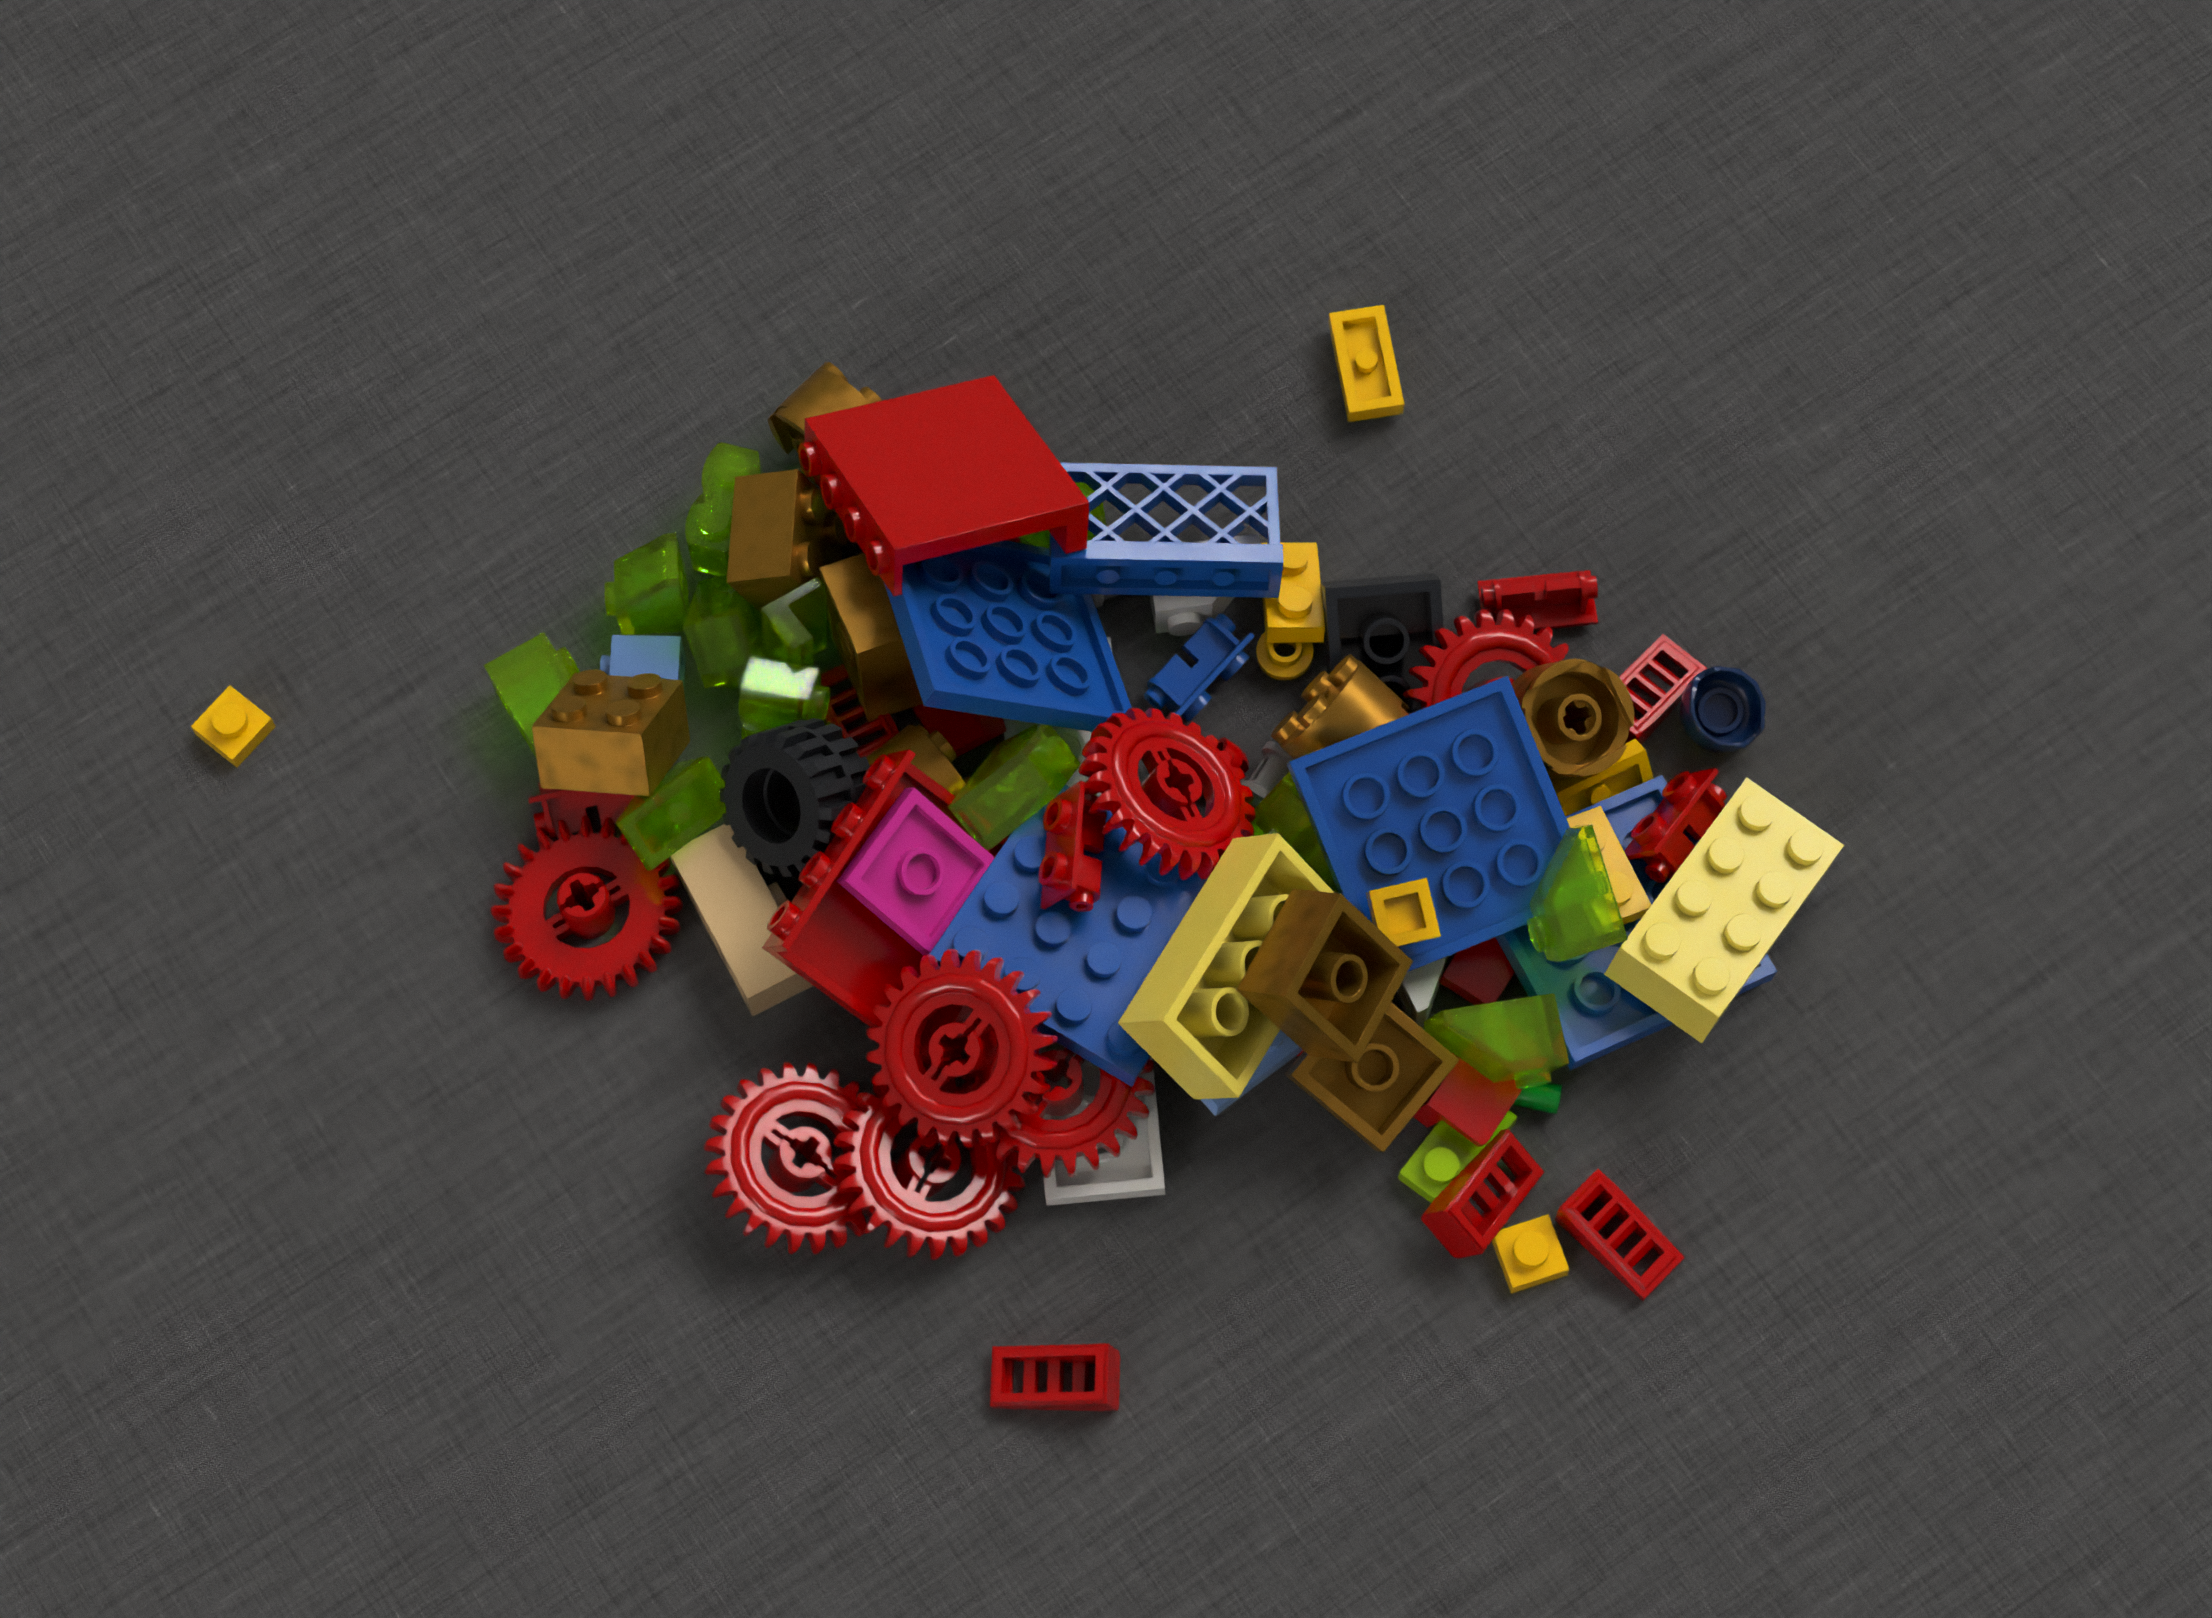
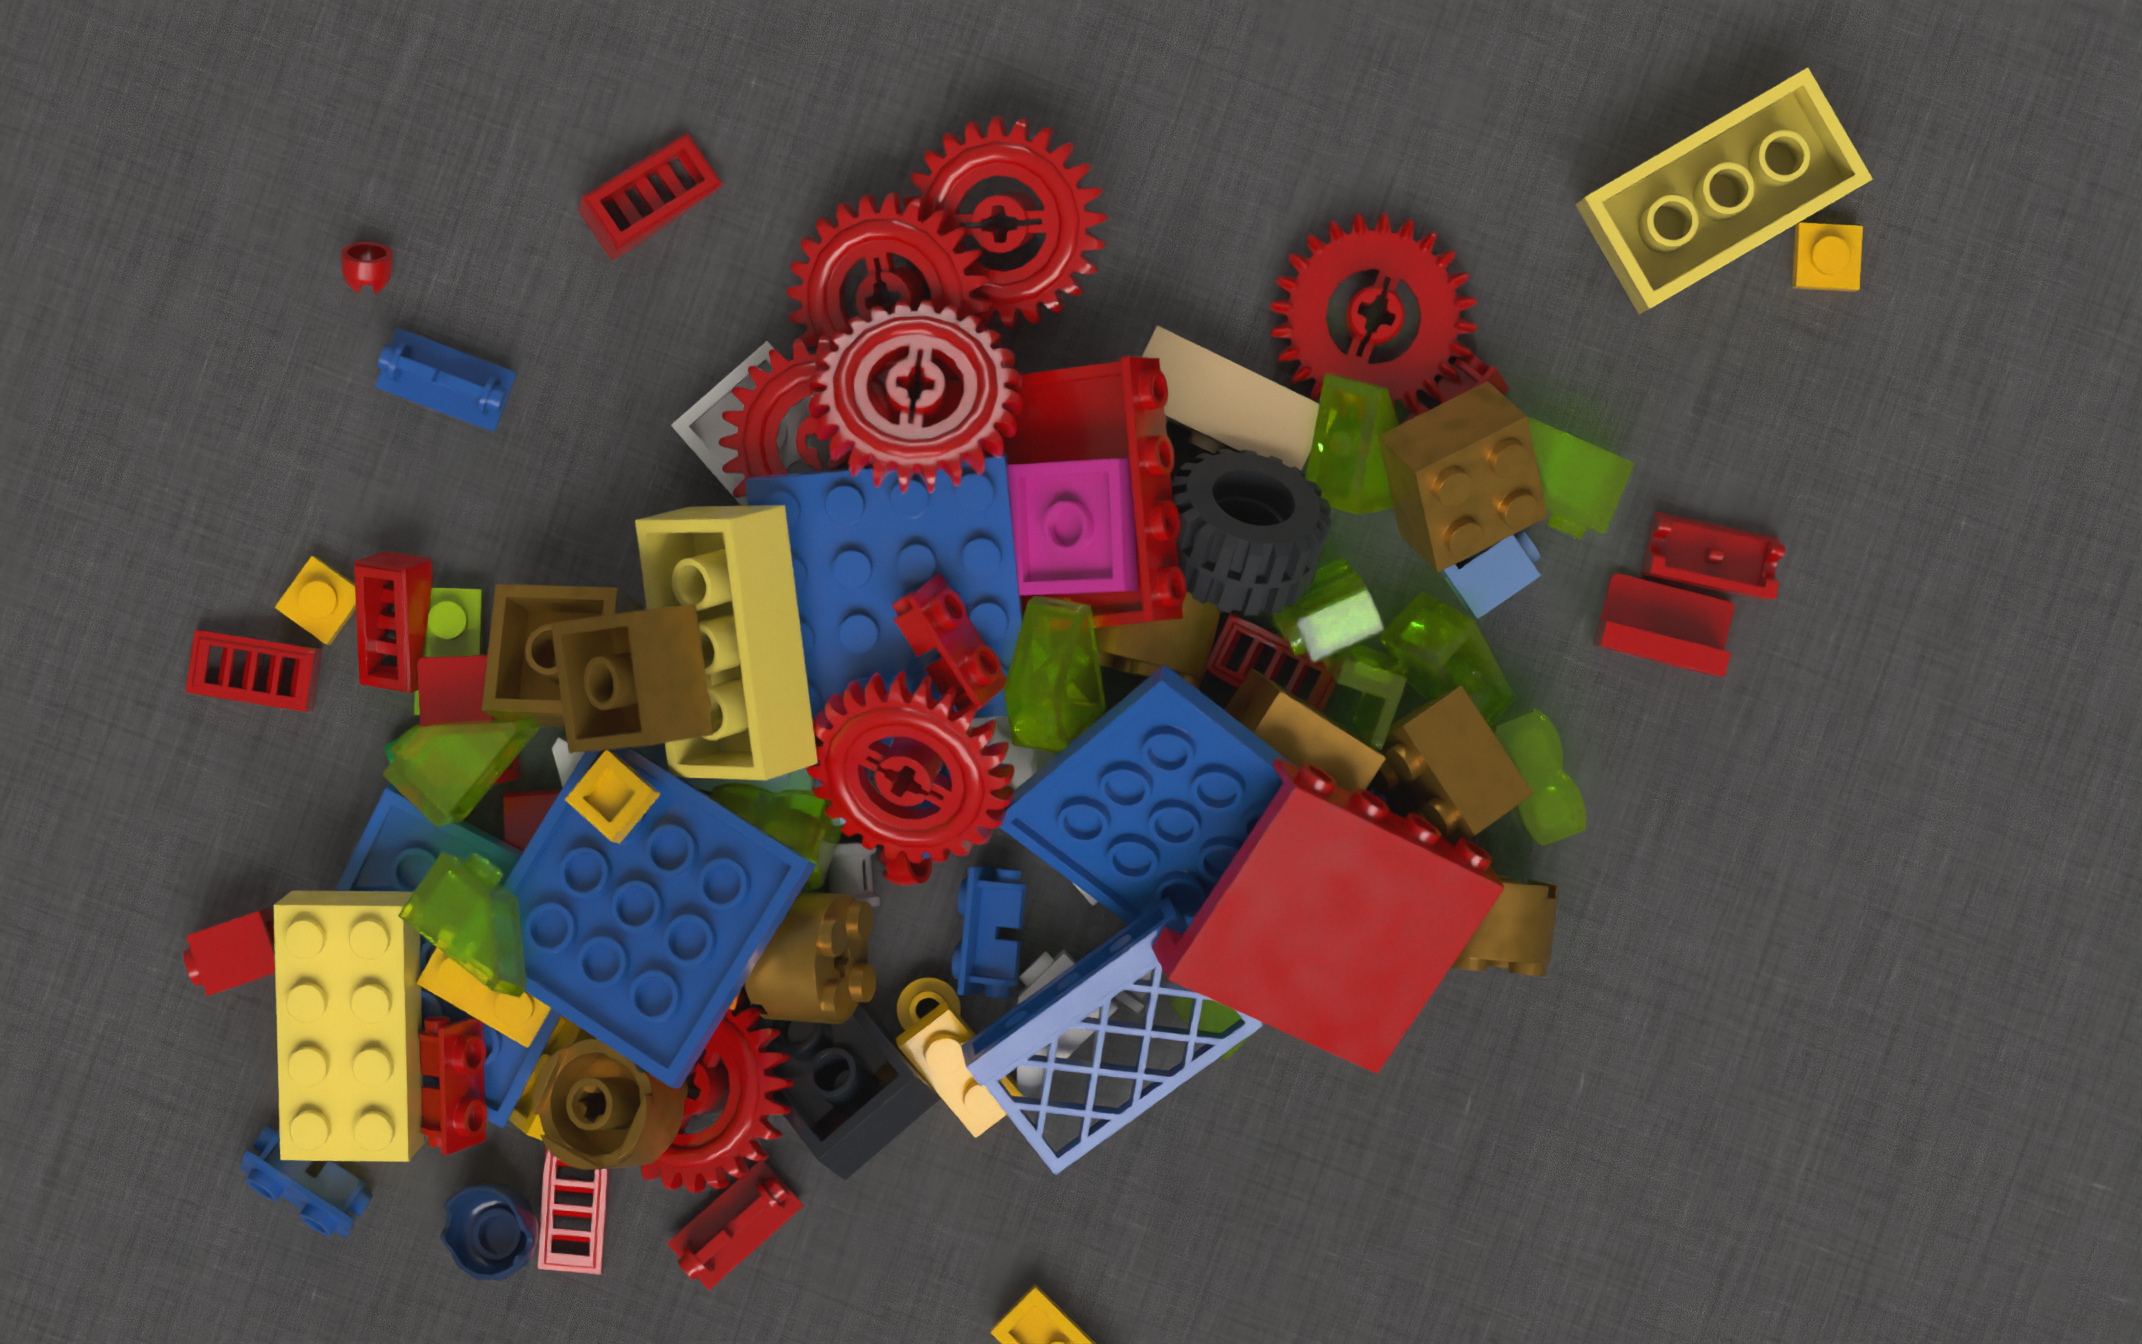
camera: 145 degrees right, 20 degrees up
(267, 810) = (1723, 191): none -> light yellow brick
(482, 575) = (1713, 557): none -> red hinge
(555, 554) = (1665, 625): none -> red panel
(649, 588) = (1544, 646): clear neon green slope -> none
(1309, 1466) = (366, 265): none -> red hinge
(1313, 1349) = (444, 379): none -> blue hinge
(1778, 1035) = (232, 952): none -> red brick
(1859, 858) = (322, 1200): none -> blue hinge

